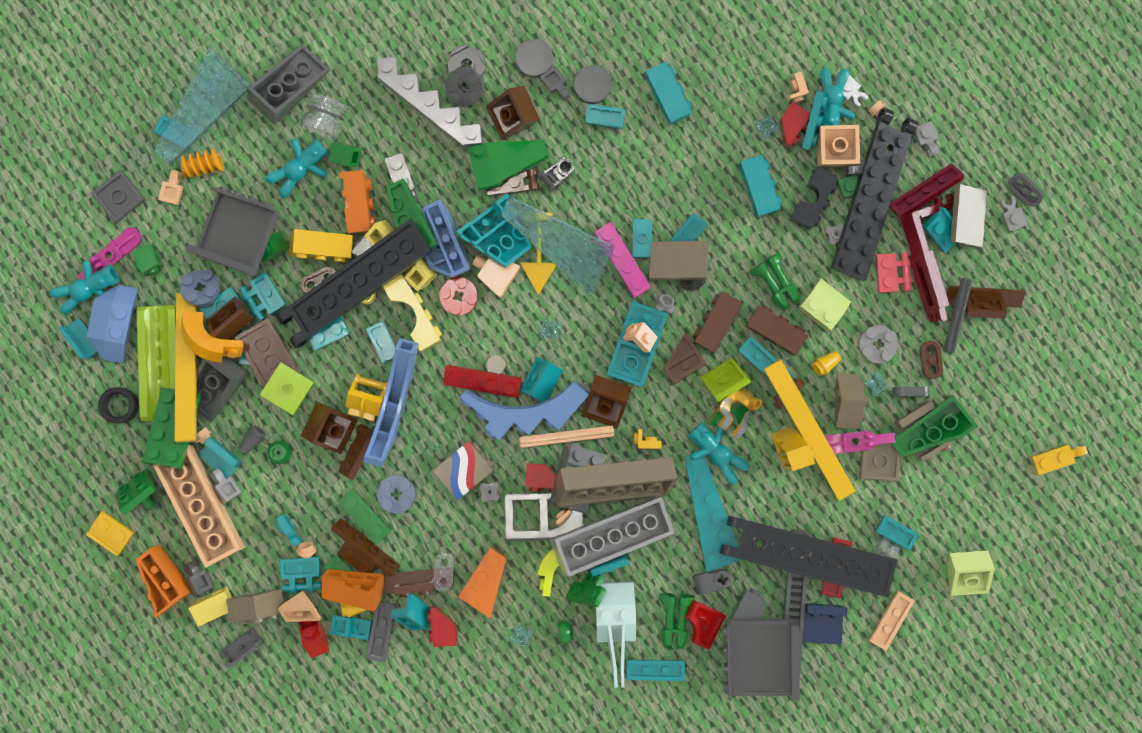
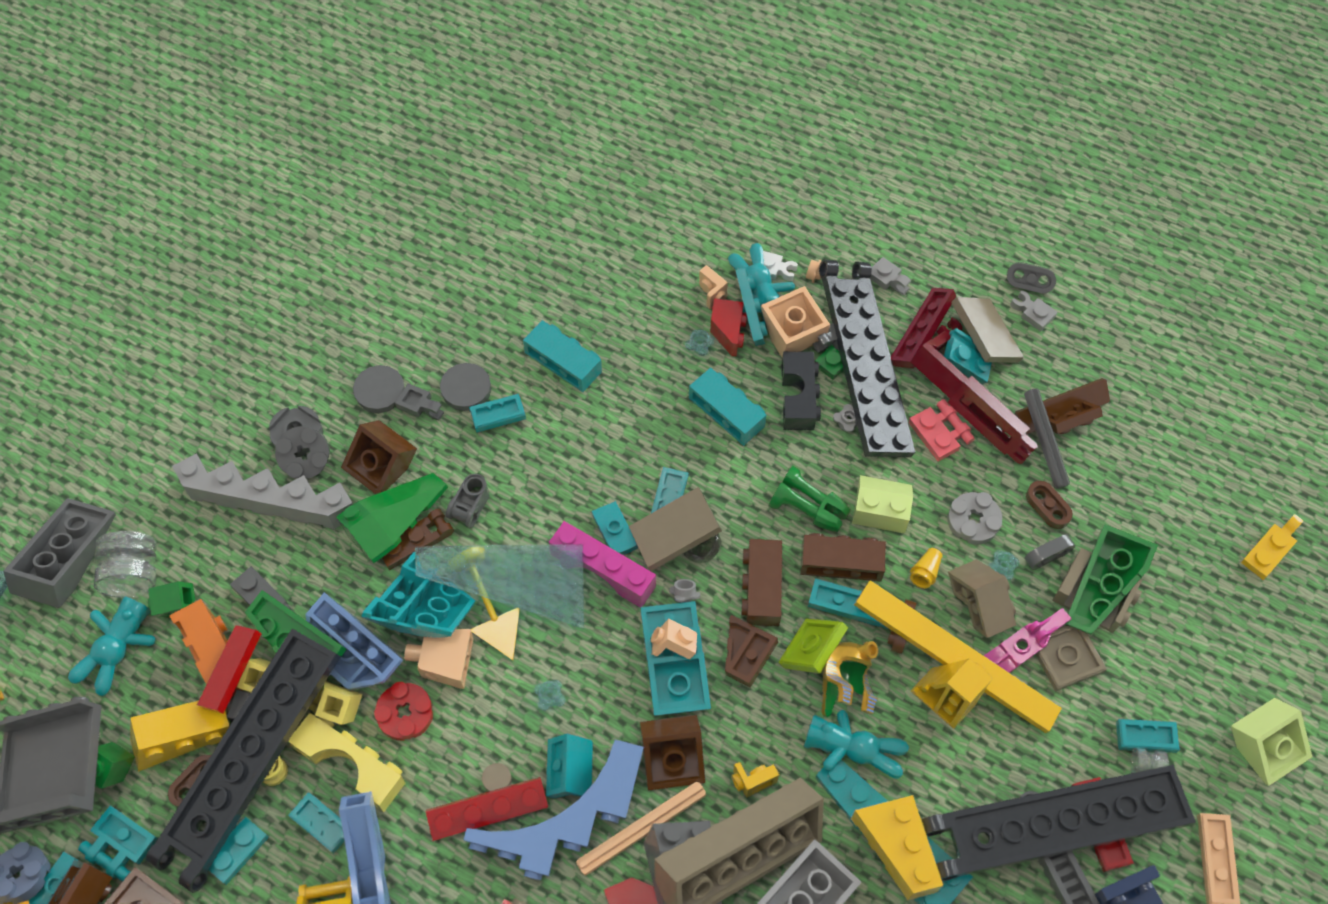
camera: 25 degrees left, 25 degrees down
(363, 224) = (229, 669): none -> red tile
(709, 524) = (902, 845): none -> yellow wedge

